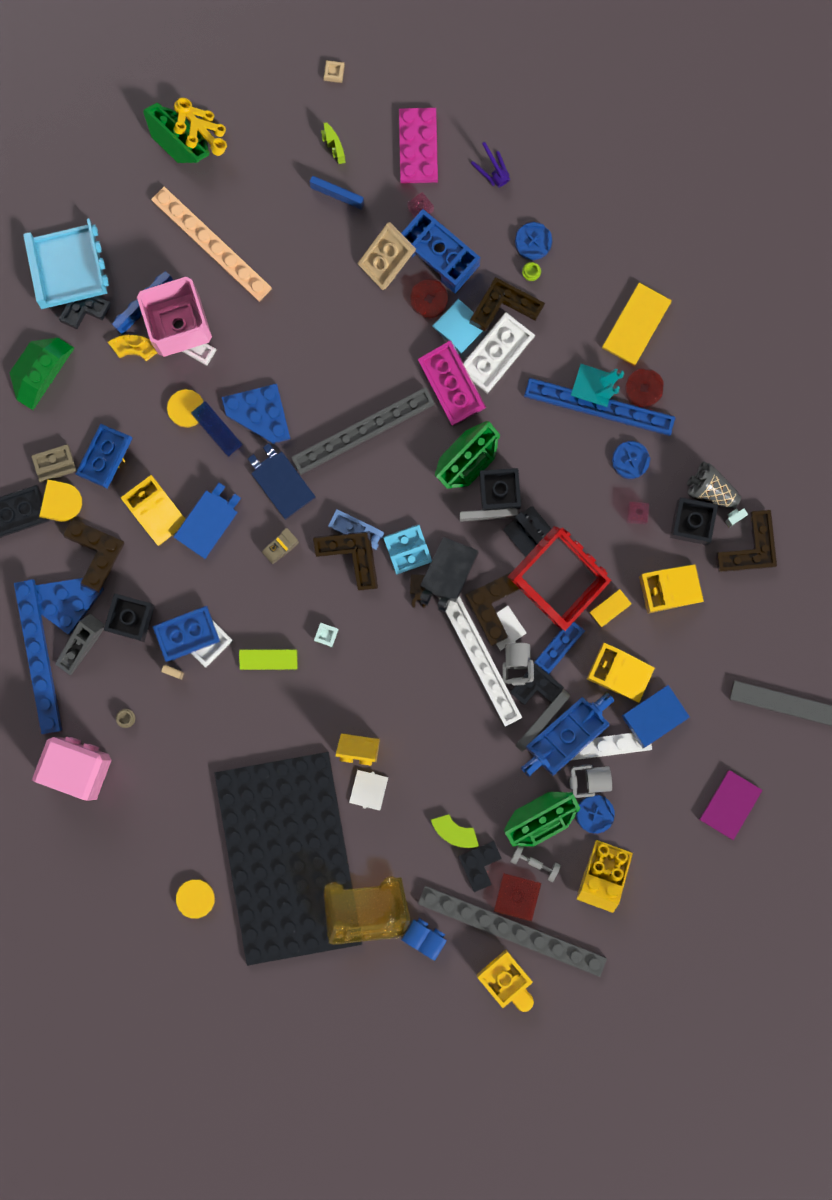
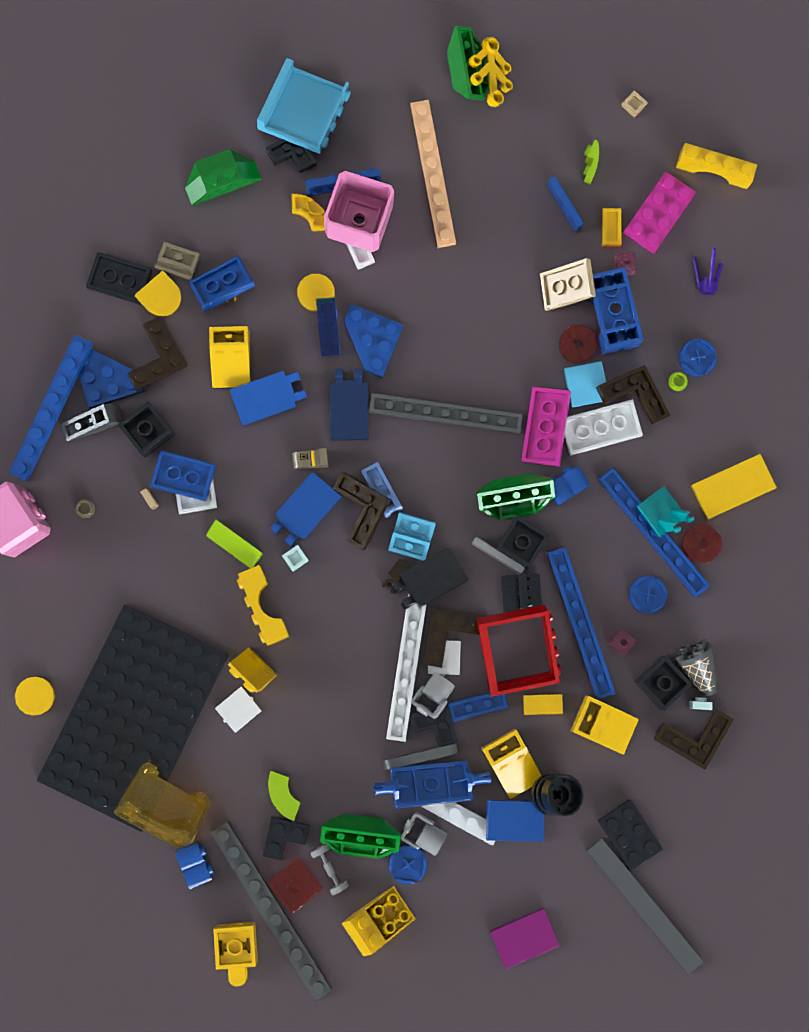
camera: 25 degrees right, 0 degrees up
(305, 589) = (305, 508): none -> blue tile
(306, 678) = (253, 583): none -> yellow arch
(388, 185) = (611, 227): none -> yellow tile
(452, 68) = (734, 170): none -> yellow arch
(504, 416) = (569, 484): none -> blue brick
(593, 521) = (581, 623): none -> blue plate
(674, 670) = (557, 794): none -> black wheel
(755, 661) = (630, 835): none -> black plate

